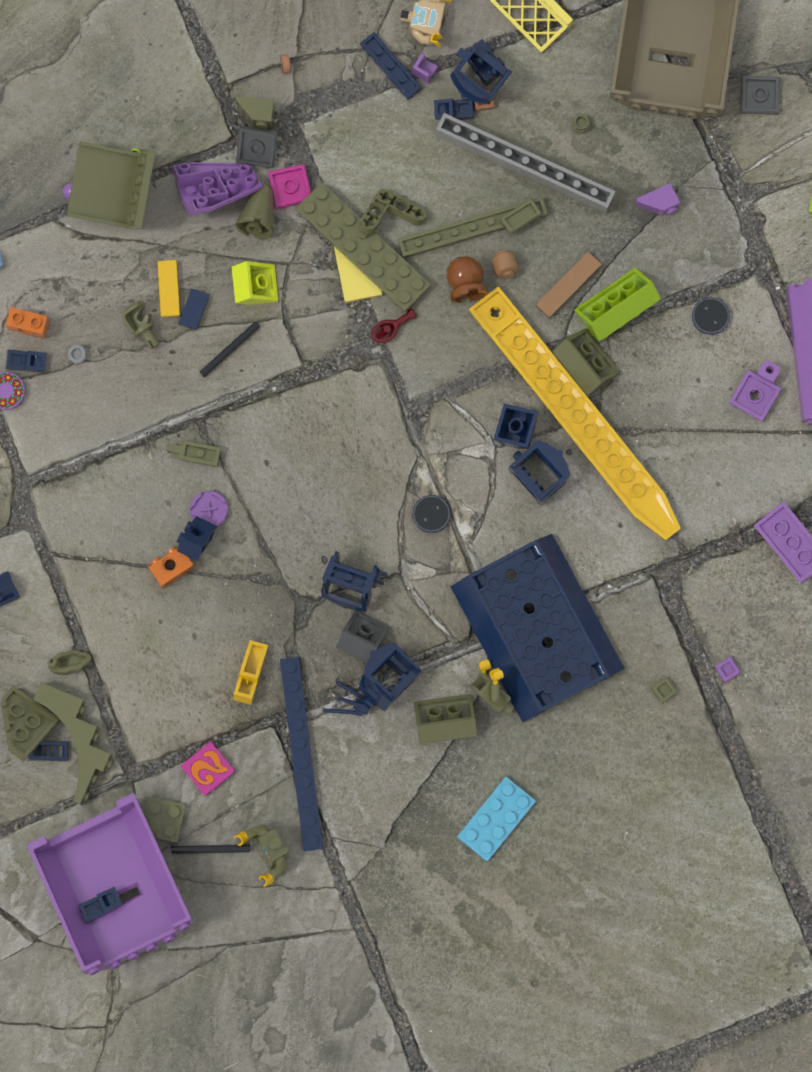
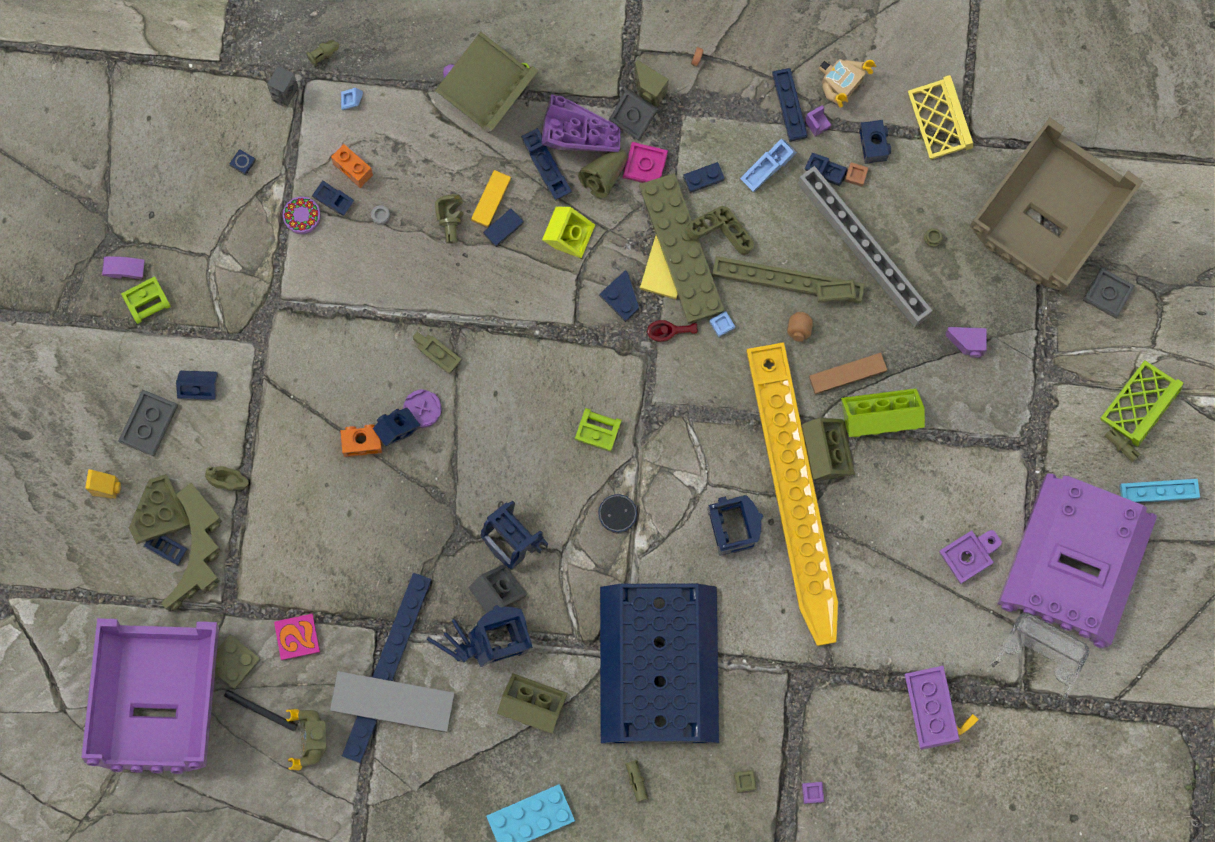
camera: 25 degrees right, 5 degrees down
(100, 905) = (133, 708): dark blue slope -> none
(202, 233) = (545, 165): none -> dark blue slope
(229, 349) = (516, 277): black bar -> none
(250, 672) = (380, 571): yellow slope -> none
(322, 781) = (391, 701): none -> light grey tile
(332, 318) = (621, 296): none -> dark blue wing
(349, 172) = (703, 177): none -> dark blue plate
(376, 454) = (596, 435): none -> lime plate
(401, 131) = (768, 164): none -> light blue slope
(434, 297) = (722, 324): none -> light blue tile
(465, 277) = (757, 321): dark orange tile -> none
(467, 86) = (847, 154): dark blue animal -> none
(490, 689) = (584, 697): olive torso -> none
(516, 426) = (733, 473): dark blue slope -> none
(571, 738) = (636, 781): none -> olive pin
(710, 316) = (962, 465): black tile -> none

